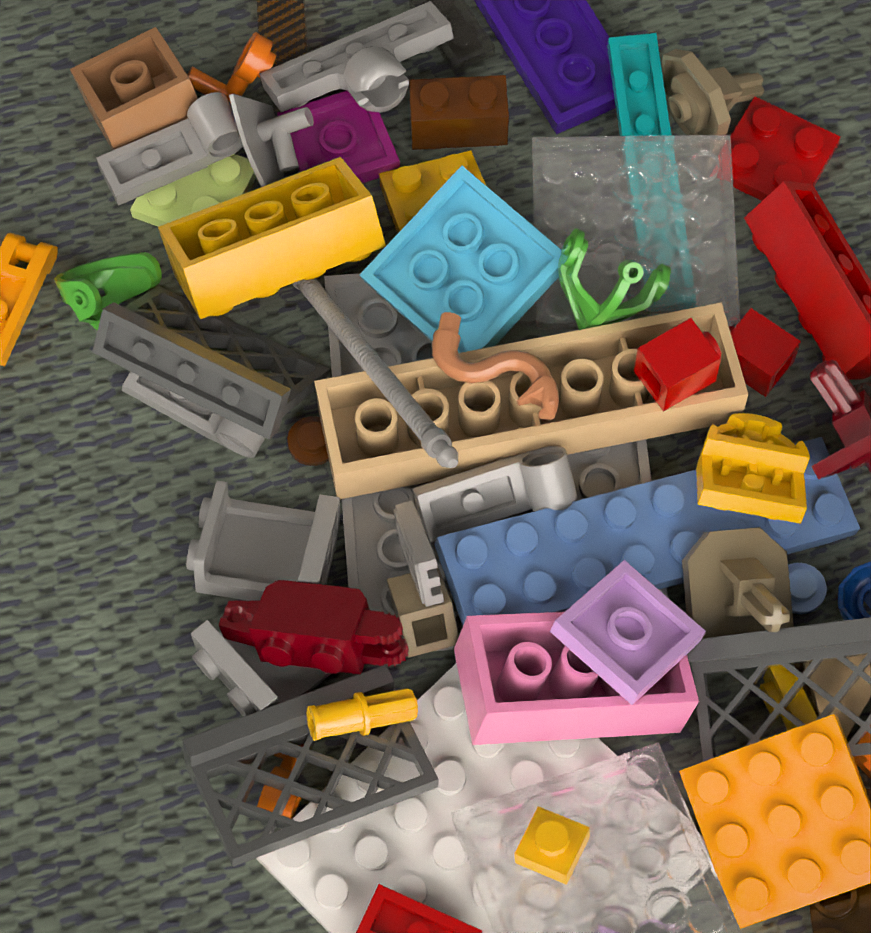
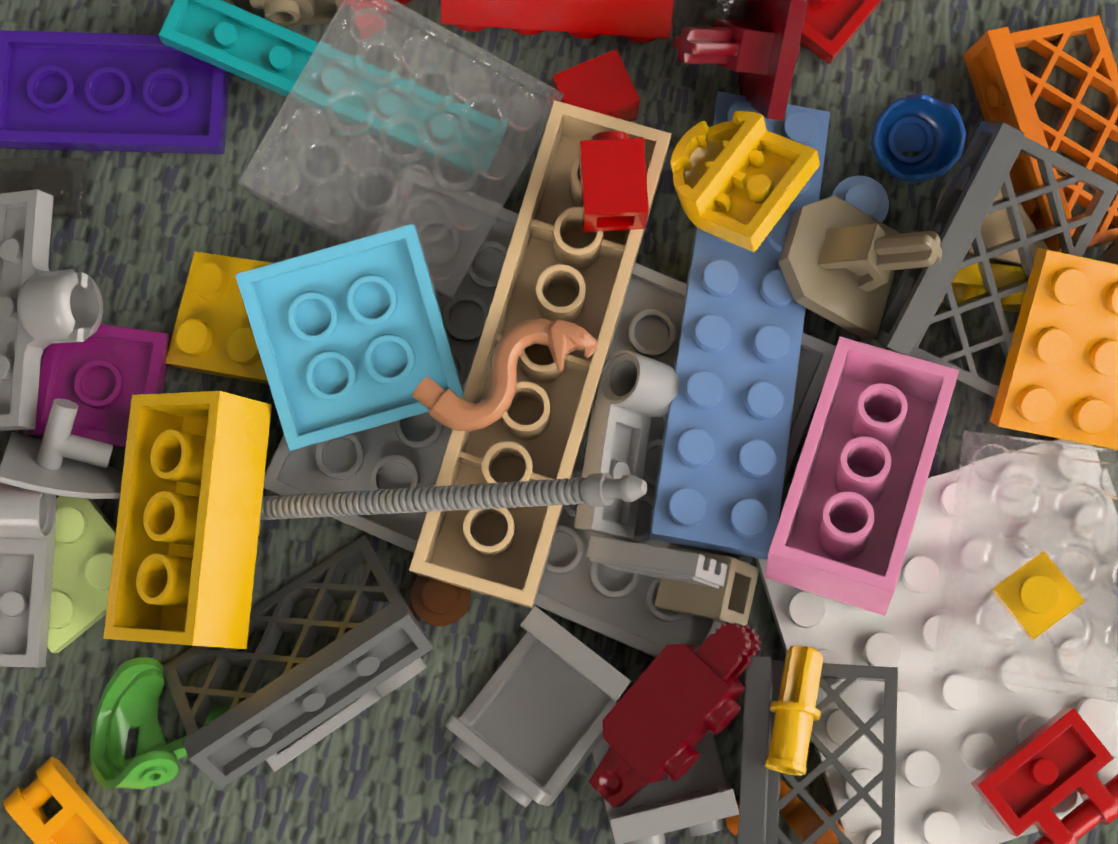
camera: 65 degrees left, 15 degrees up
(459, 112) = (144, 239): reddish brown brick -> none
(589, 312) = (497, 221): bright green helmet -> none
(627, 631) = (865, 400): lavender plate -> none

